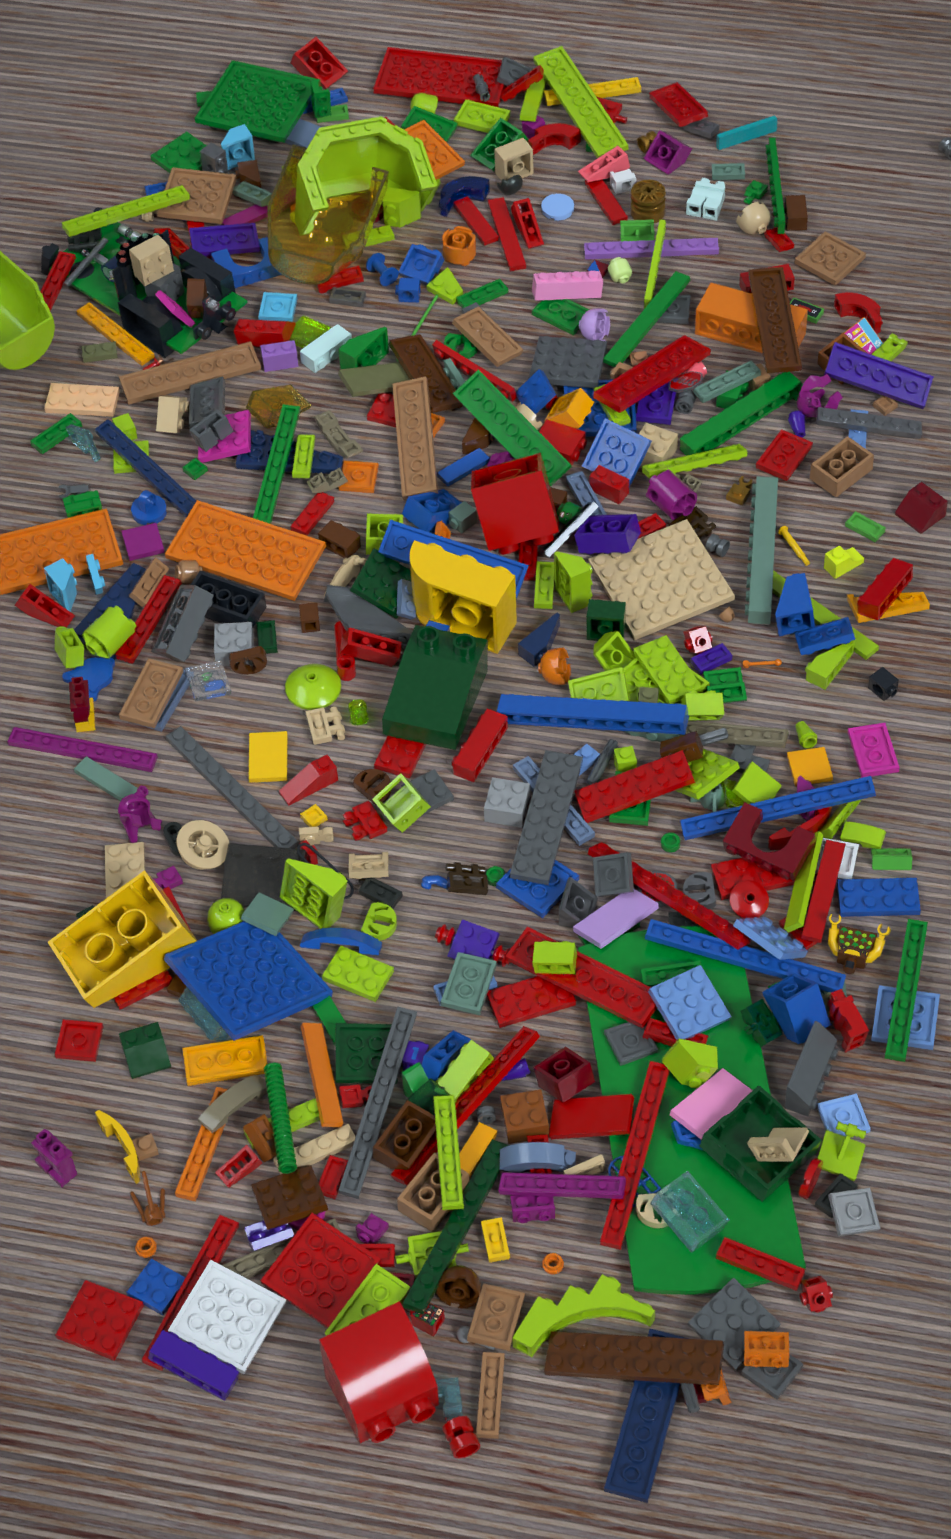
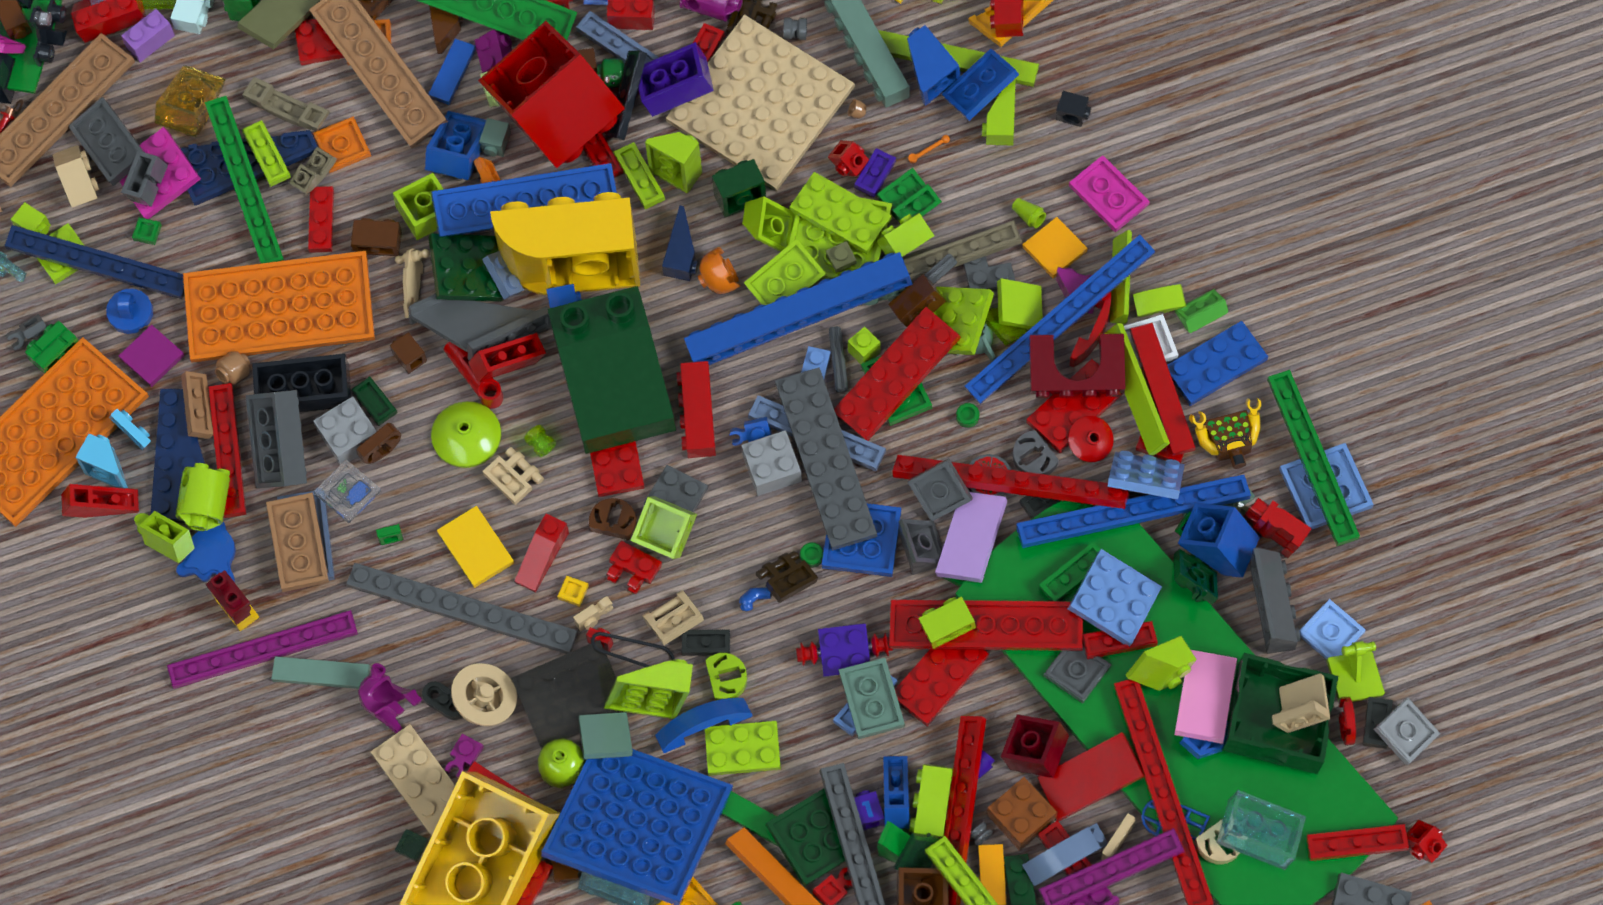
camera: 30 degrees left, 15 degrees up
(216, 720) = (389, 534): none -> green tile
(509, 774) = (753, 430): none -> blue plate

